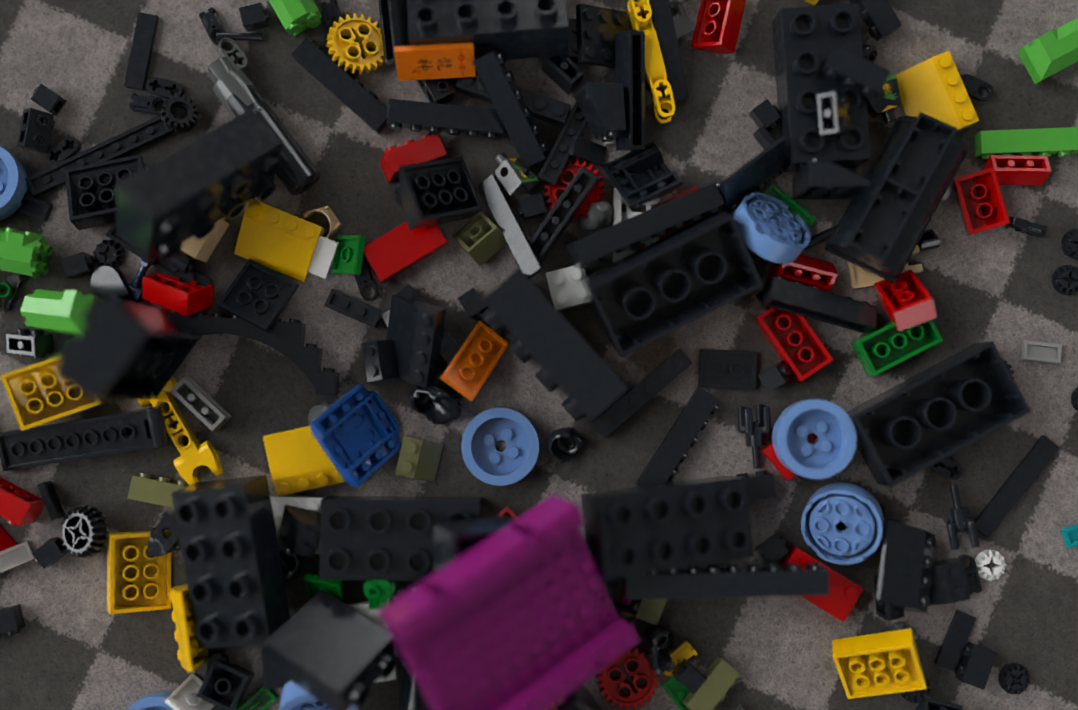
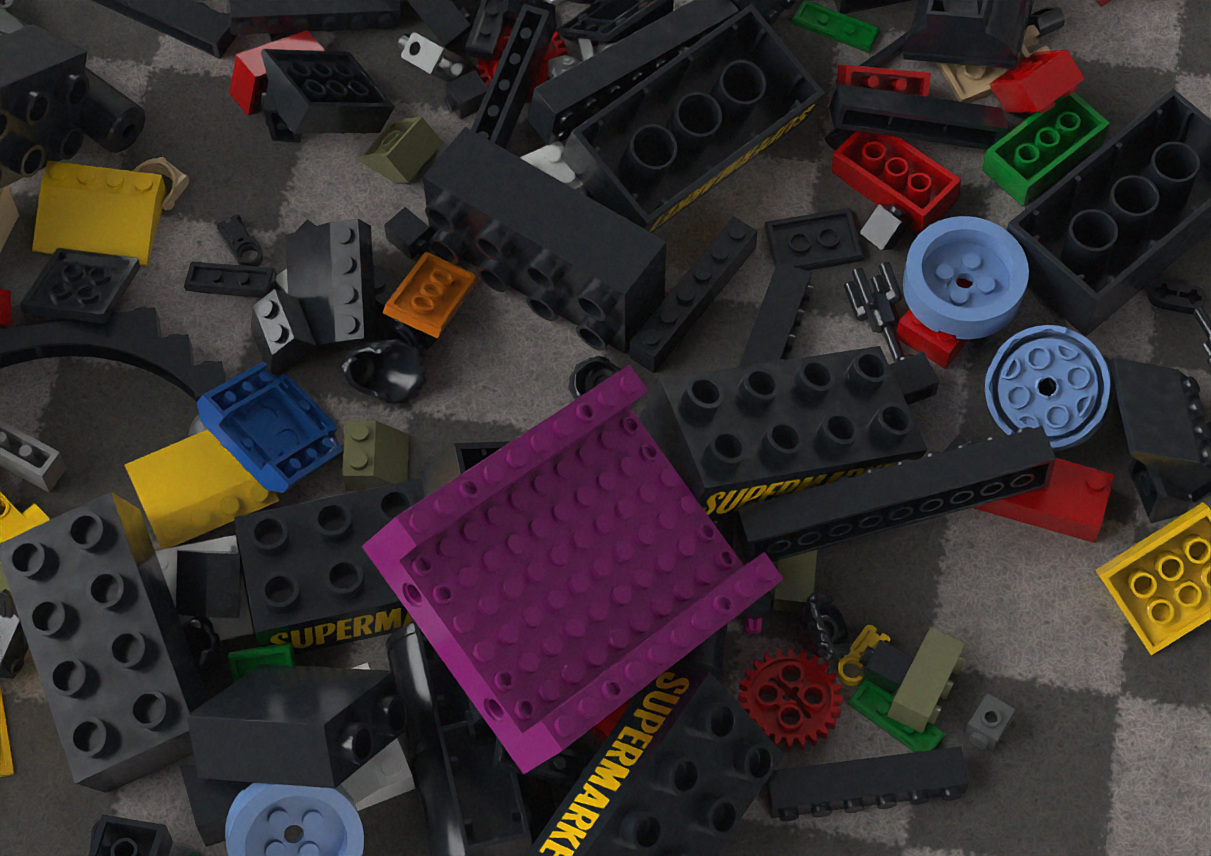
camera: 15 degrees left, 25 degrees down
(185, 634) = (47, 776): yellow slope -> none
(323, 257) = (170, 221): white tile -> none
(349, 255) = (207, 206): green tile -> none
(380, 592) = (355, 639): green piece -> none
(402, 249) = (289, 182): red brick -> none
(500, 466) = (493, 383): medium blue brick -> none
(510, 227) = (430, 106): tile -> none
(771, 228) = (819, 33): medium blue brick -> none

